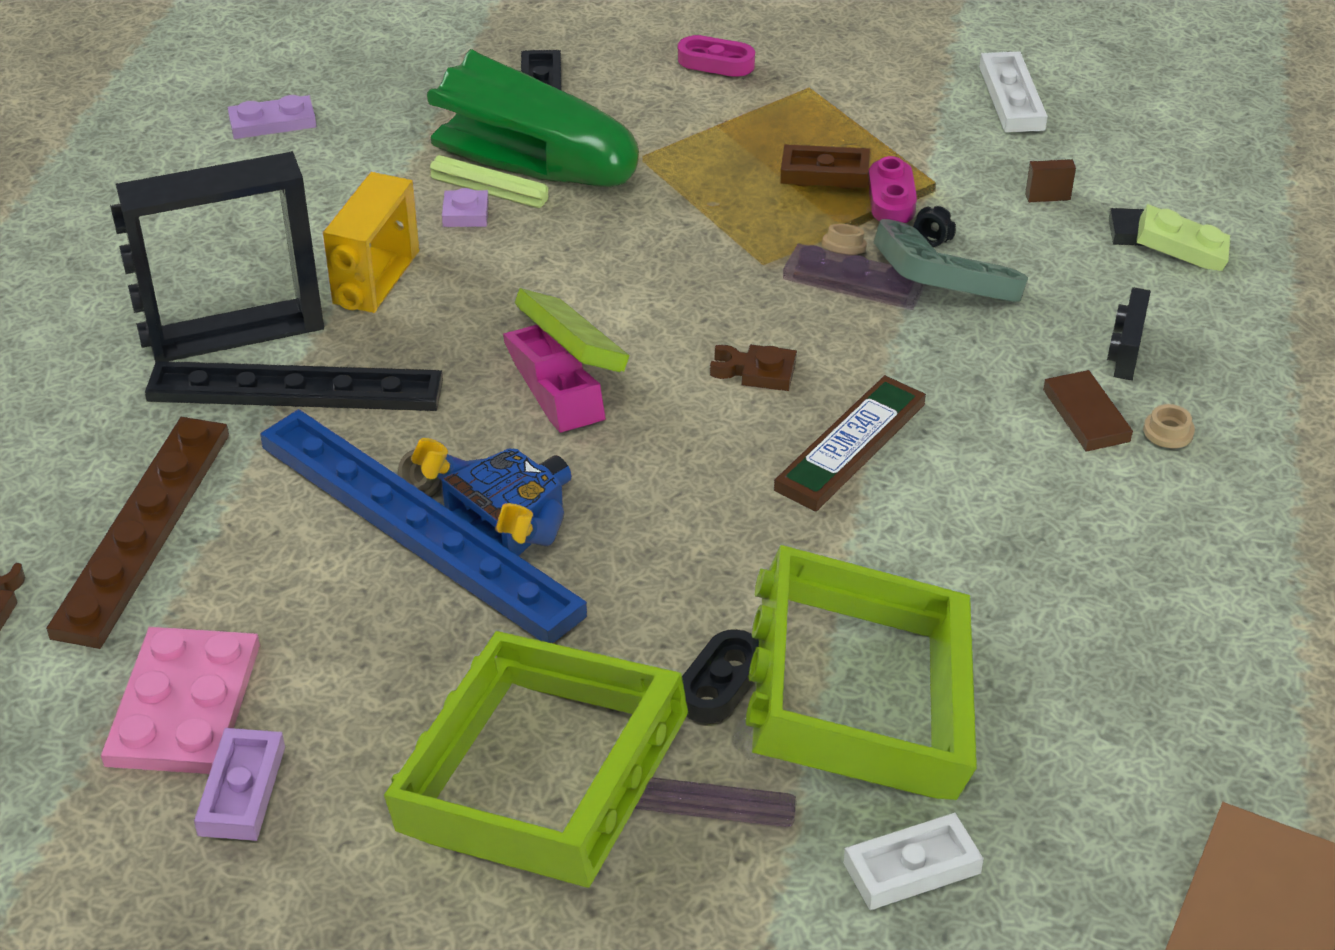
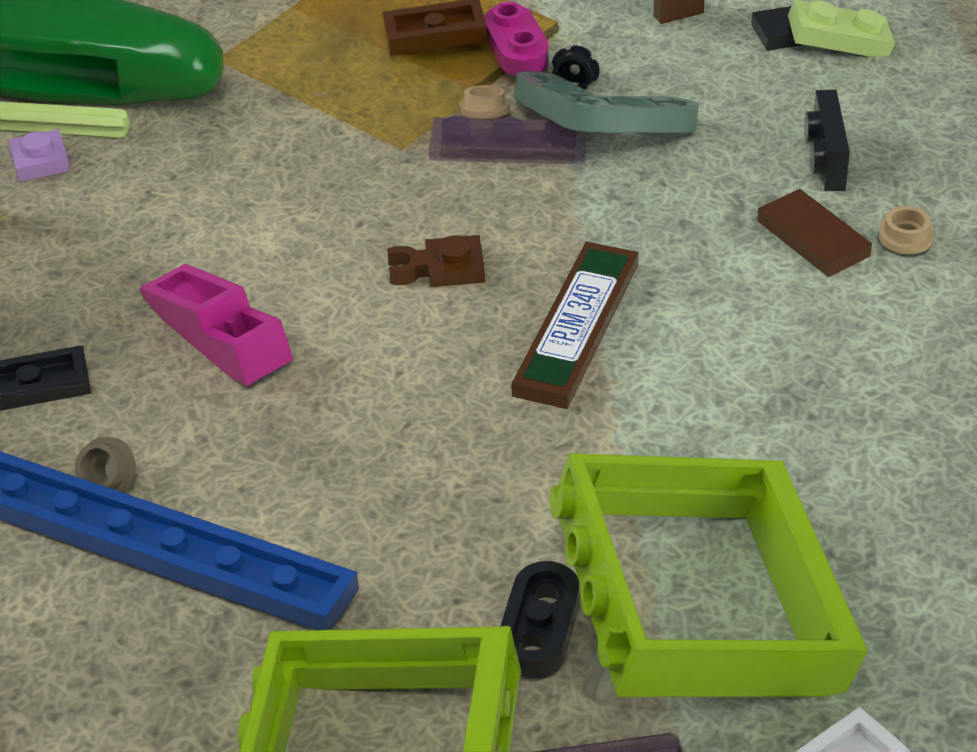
camera: 15 degrees left, 0 degrees up
(500, 494) = (210, 470): torso -> none
(572, 330) = (224, 266): lime tile -> none

